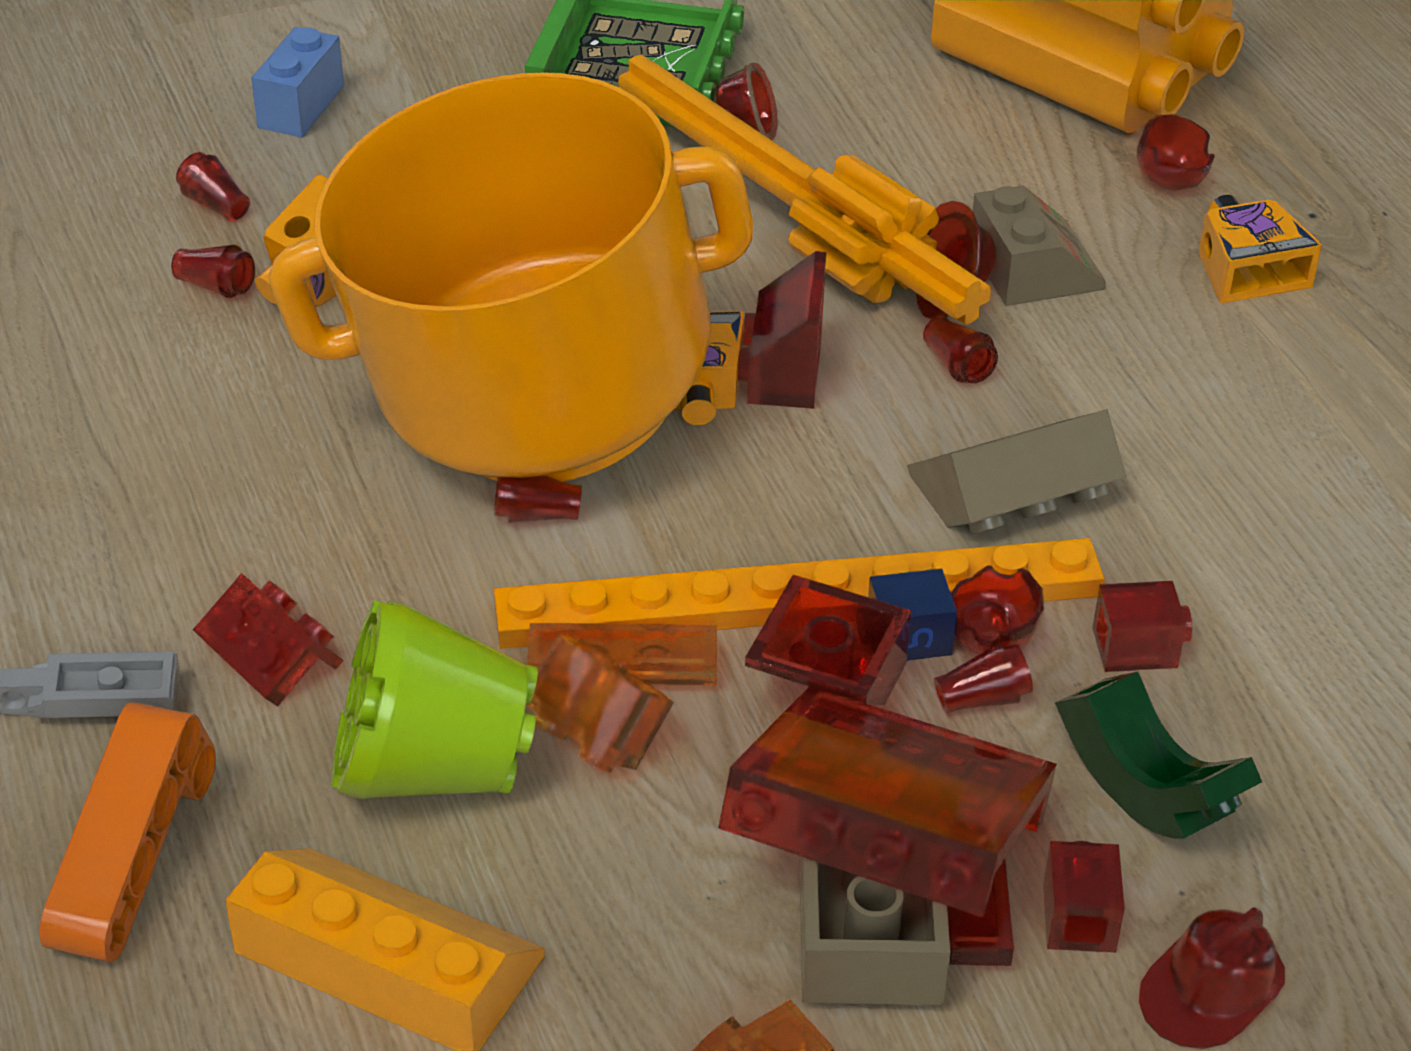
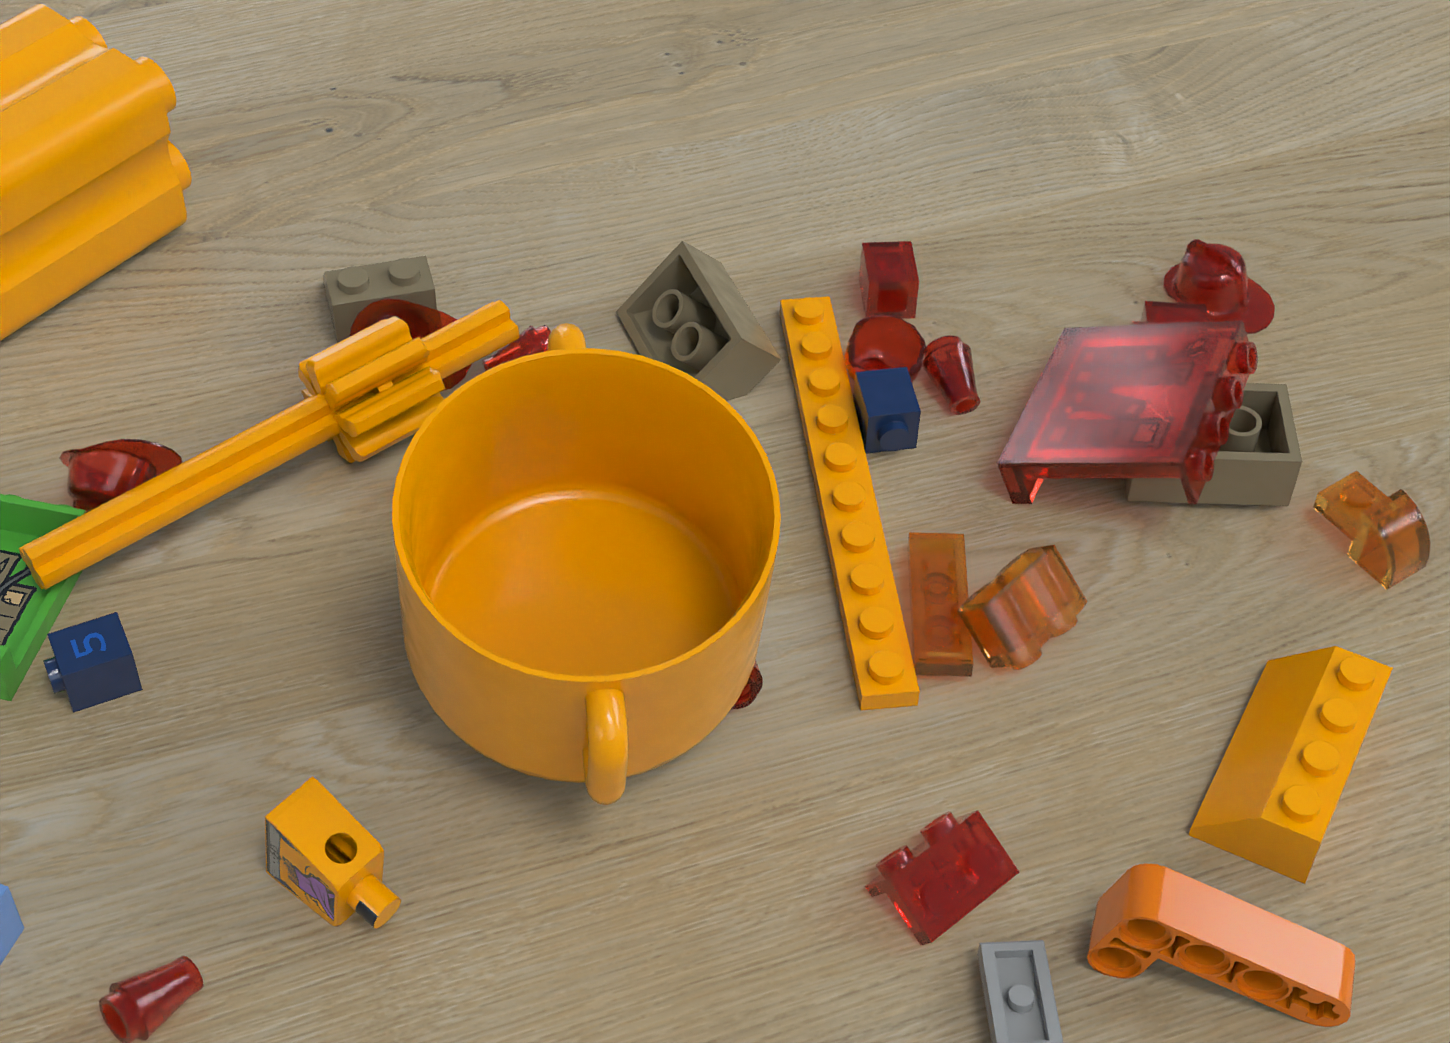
camera: 90 degrees left, 5 degrees up
(218, 269) = (325, 978): clear red cone -> none
(429, 711) = (1079, 721): lime cone -> none
(833, 641) = (955, 449): clear red slope -> none
(1144, 766) = (1056, 287): dark green arch -> none
(1174, 152) = (250, 190): clear red hair -> none
(1256, 250) = (398, 160): light orange torso -> none

